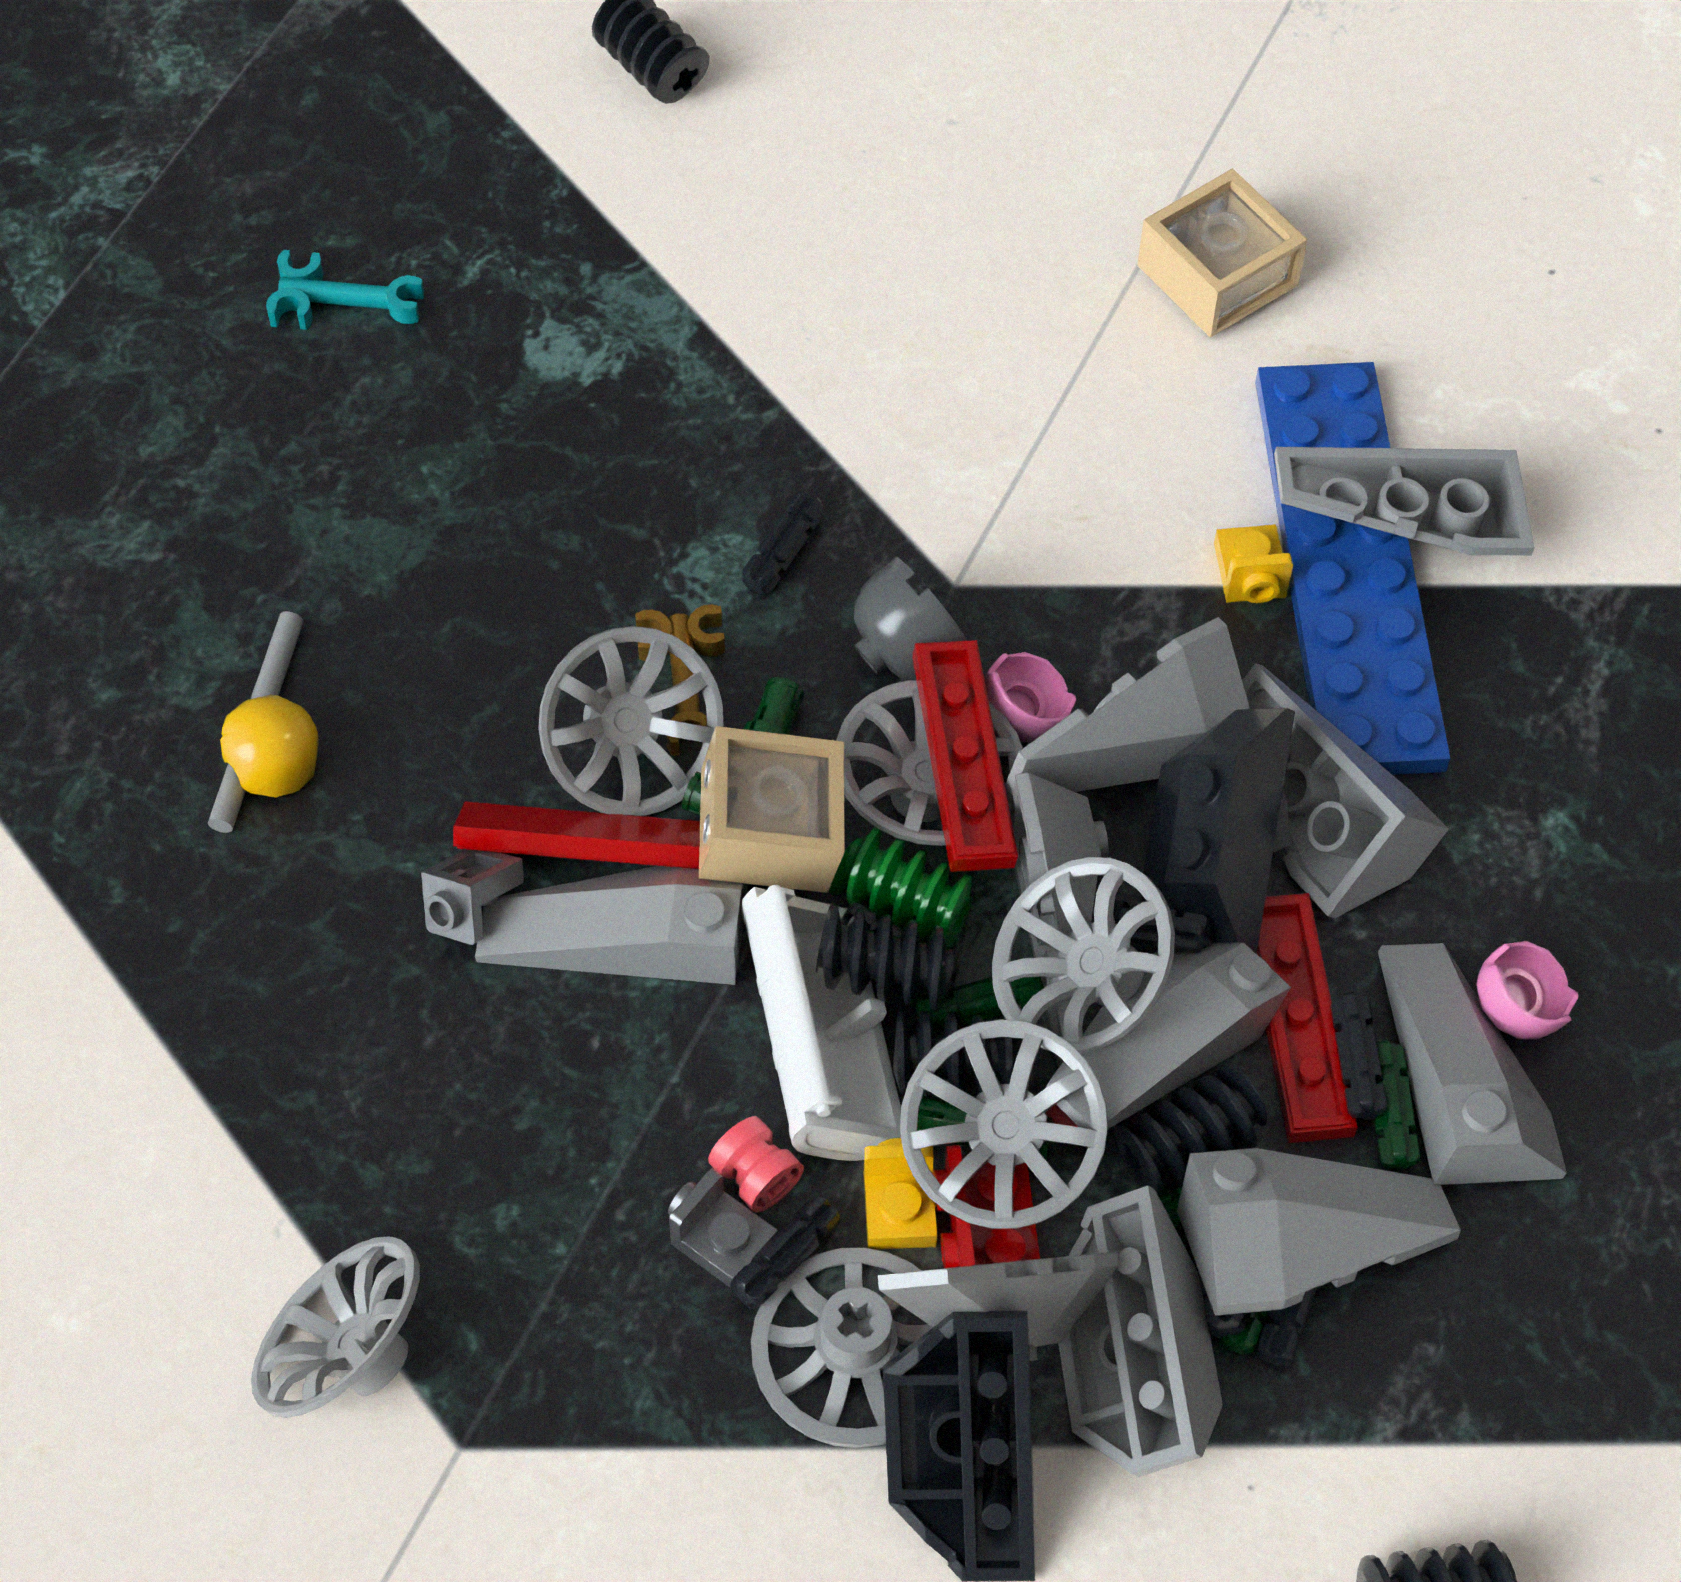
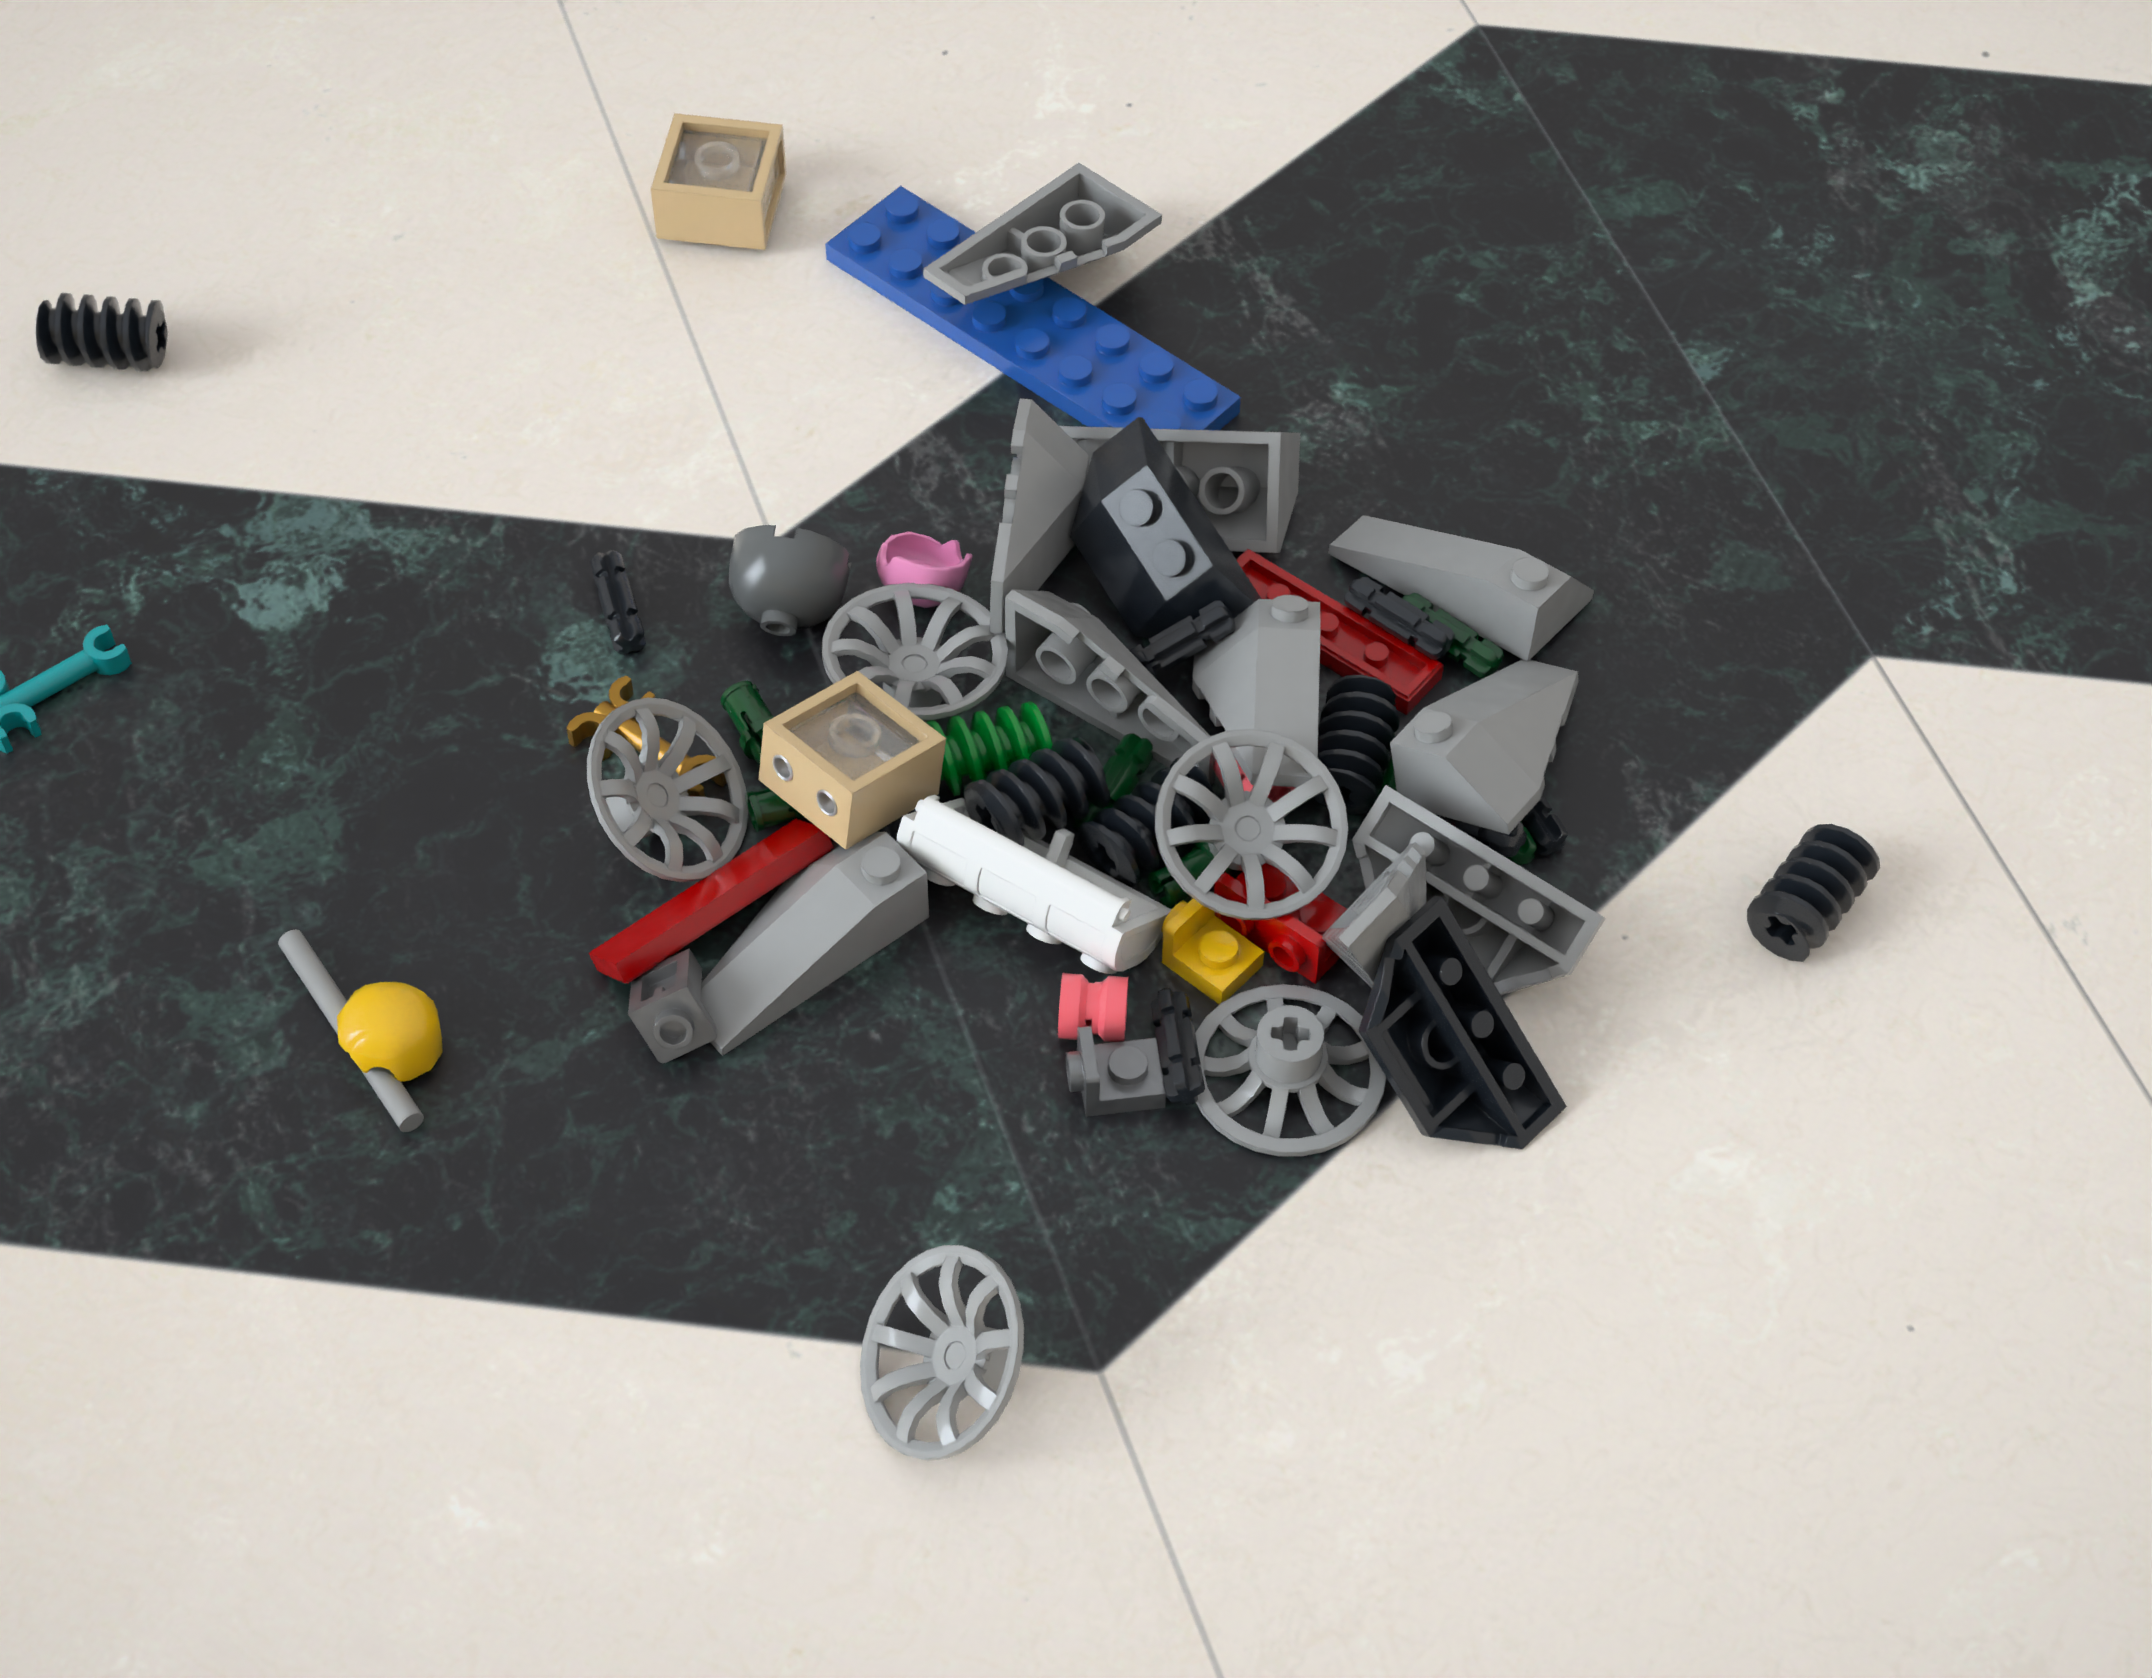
camera: 45 degrees left, 5 degrees down
(964, 756) = (939, 624): red tile -> none
(1094, 959) = (1189, 674): light grey wheel -> none
(1252, 563) = (968, 373): yellow bracket -> none
(1525, 991) = (1452, 500): bright pink hair -> none

